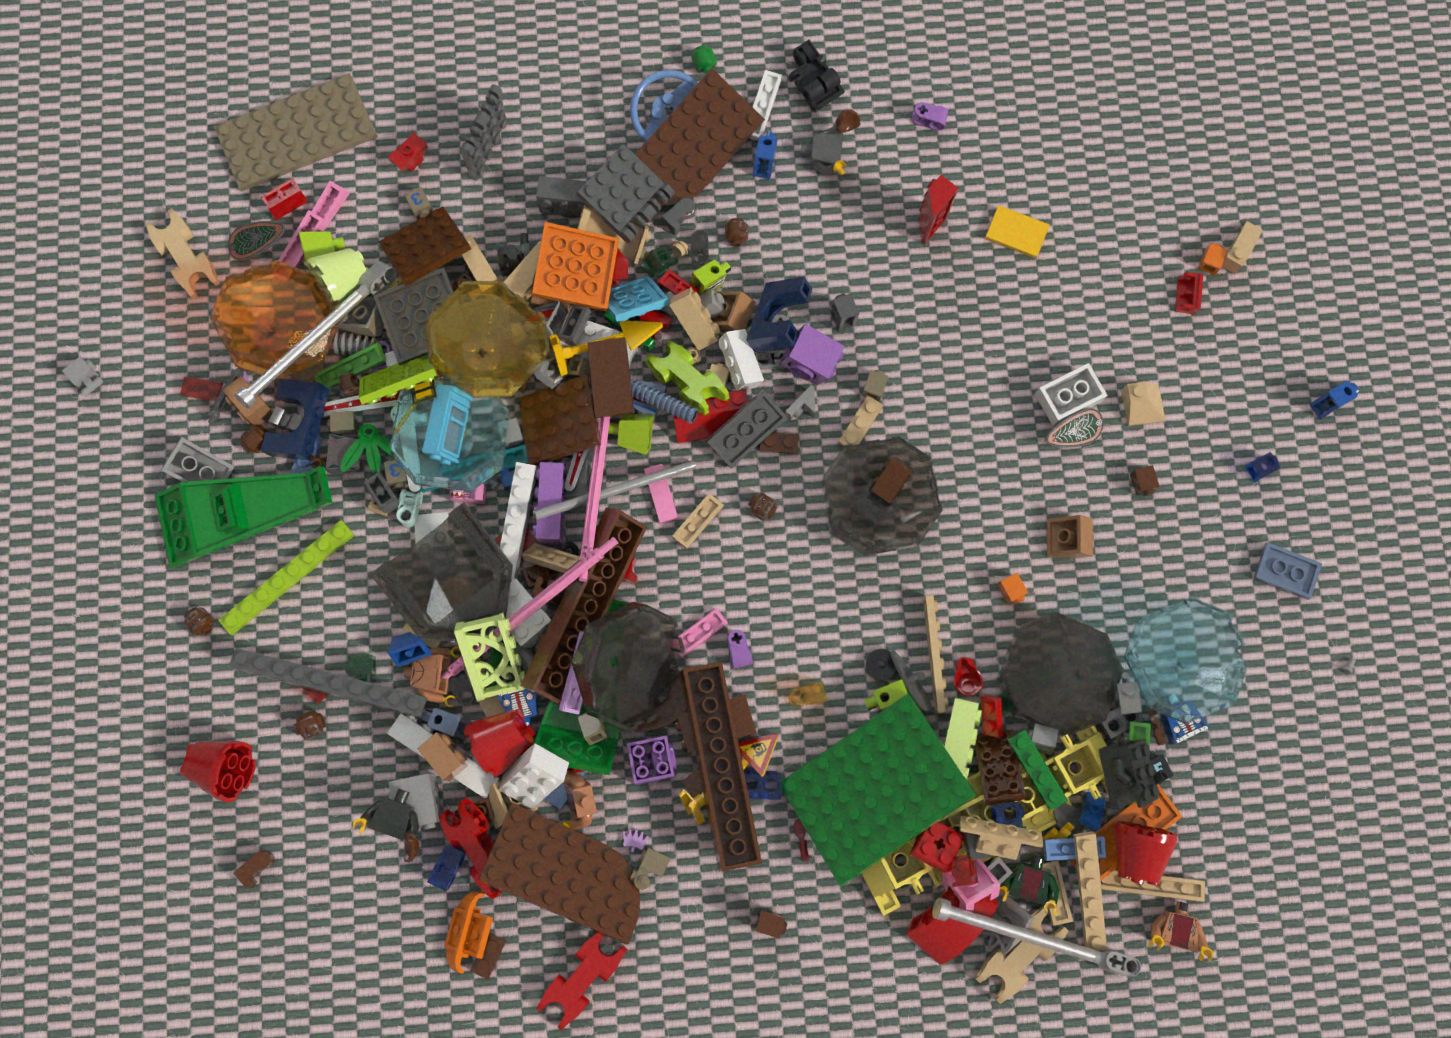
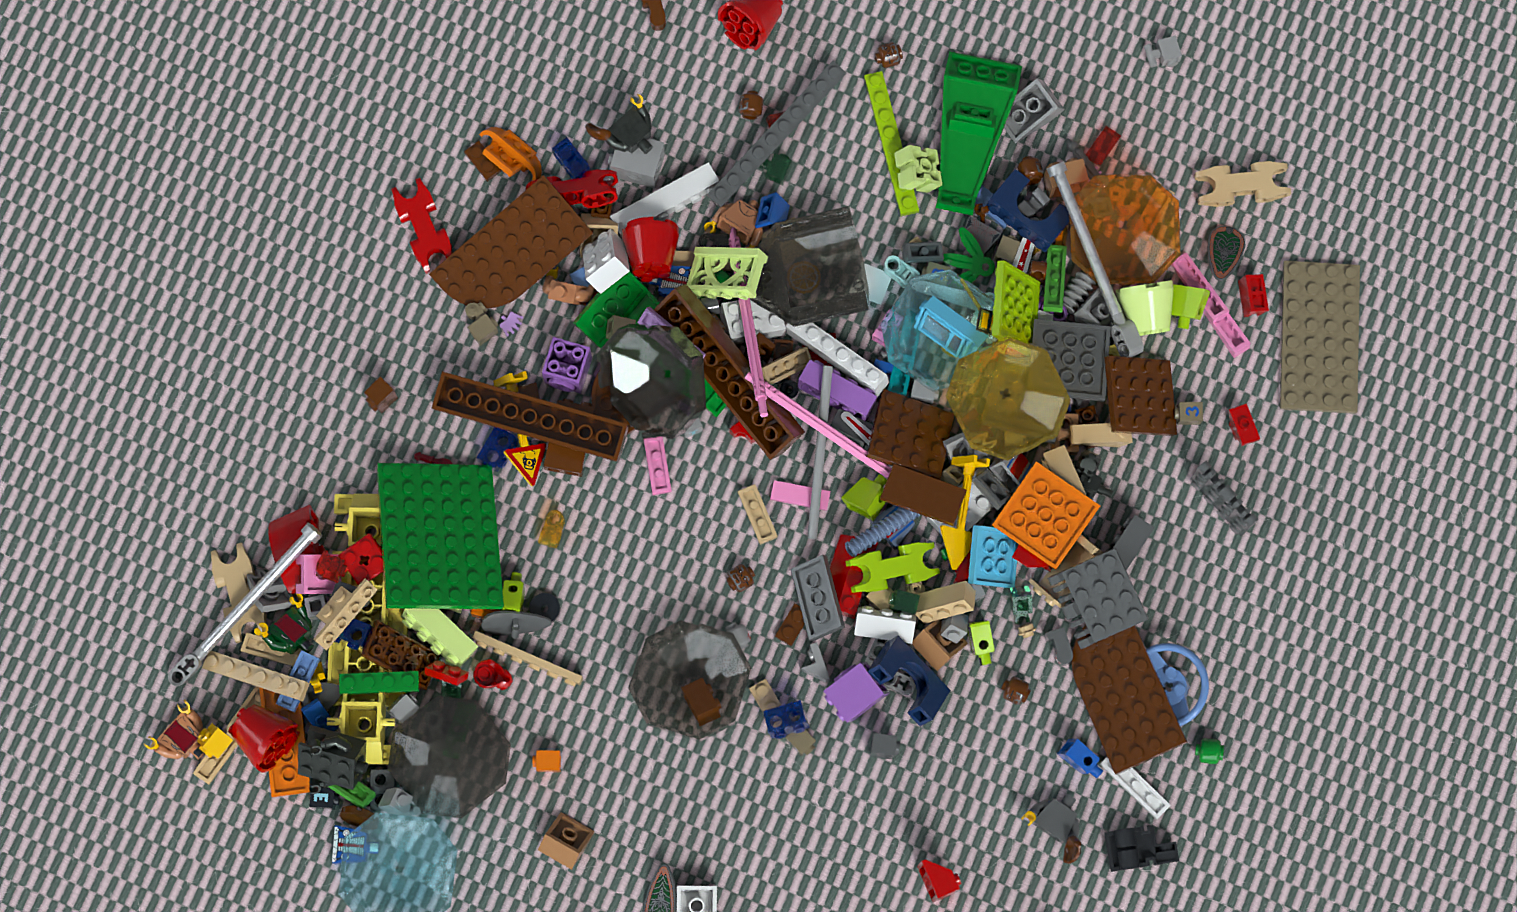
camera: 120 degrees right, 0 degrees up
(301, 536) = (918, 169): none -> yellowish green brick
(442, 756) = (661, 195): medium nougat brick -> none
(446, 722) = (691, 215): sand blue torso -> none
(674, 283) = (987, 605): red hinge -> none
(699, 245) = (1022, 651): clear smoke piece -> none
(712, 352) = (904, 601): none -> clear green brick
(739, 653) = (620, 490): medium lavender piece -> none
(813, 484) = (740, 633): none -> light grey head
(864, 403) = (785, 714): none -> clear blue brick
(1172, 894) = (213, 741): none -> yellow brick

